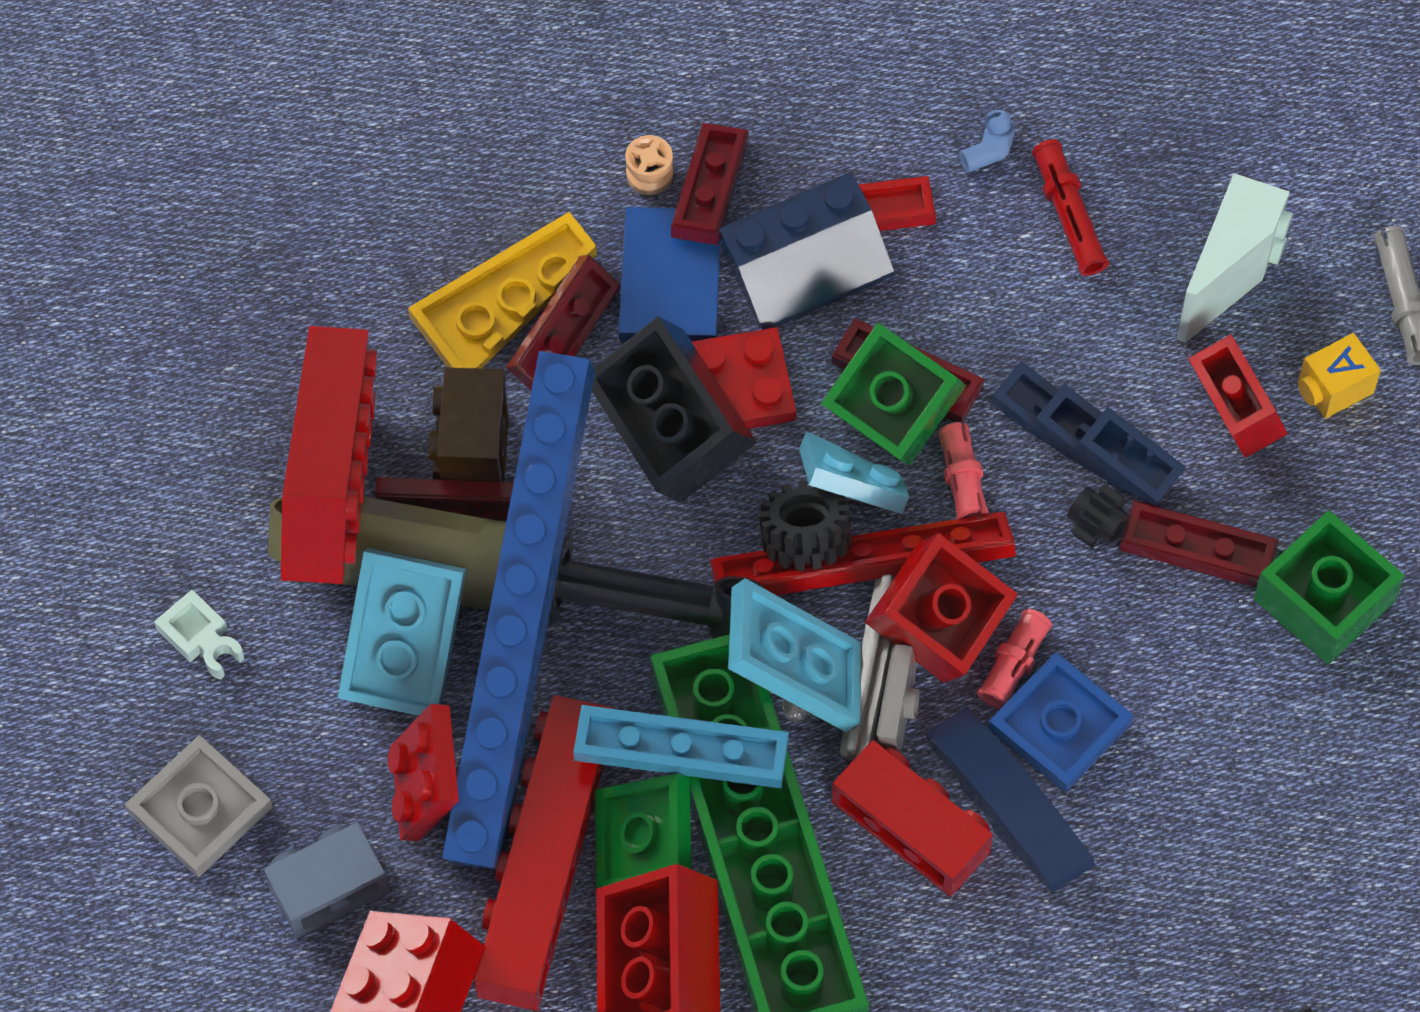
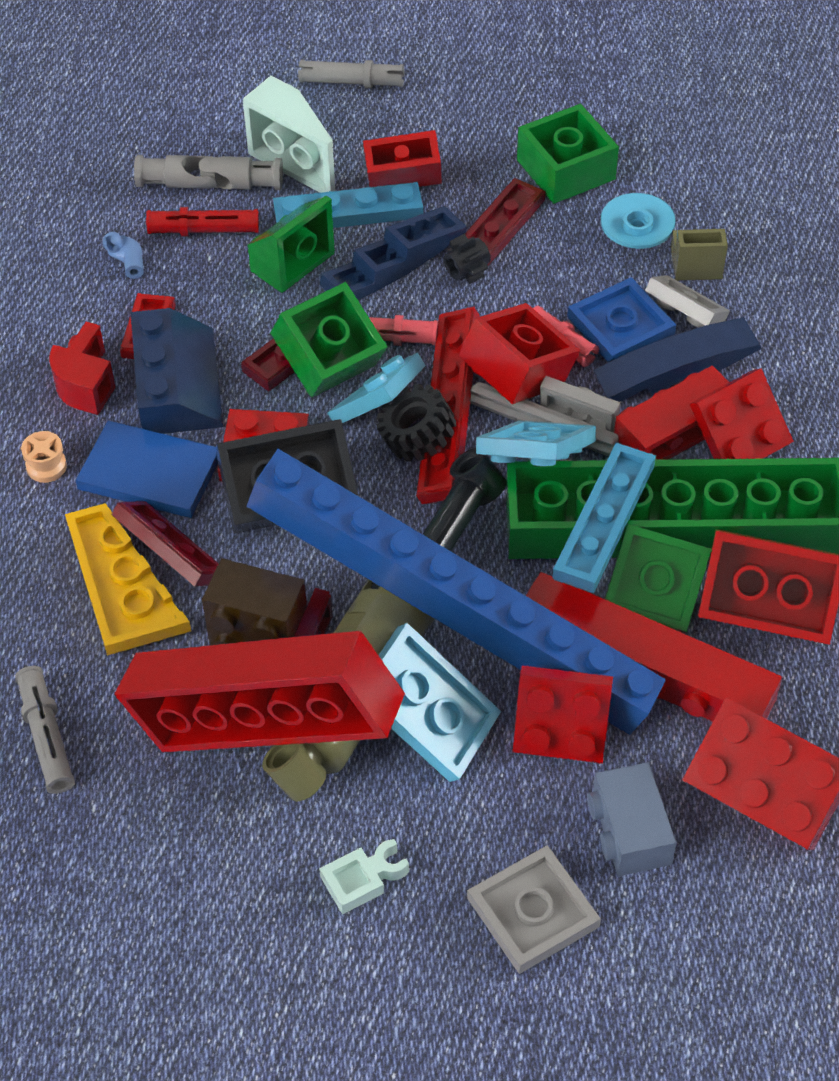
camera: 75 degrees left, 10 degrees down
(315, 278) = (56, 769): none -> light grey pin
(709, 183) = (82, 420): dark red tile -> none
(777, 150) = (80, 373): none -> red brick
(916, 888) = (742, 419): none -> red plate
(1050, 314) = (294, 245): none -> green slope
(1118, 792) = (675, 295): none -> light grey plate
(1159, 362) = (362, 204): none -> dark azure plate
(1163, 211) = (215, 172): none -> light grey piece
(1214, 789) = (698, 254): none -> olive piece
(1249, 684) = (638, 220): none -> medium azure dish
(1338, 376) = (401, 112): yellow brick -> none

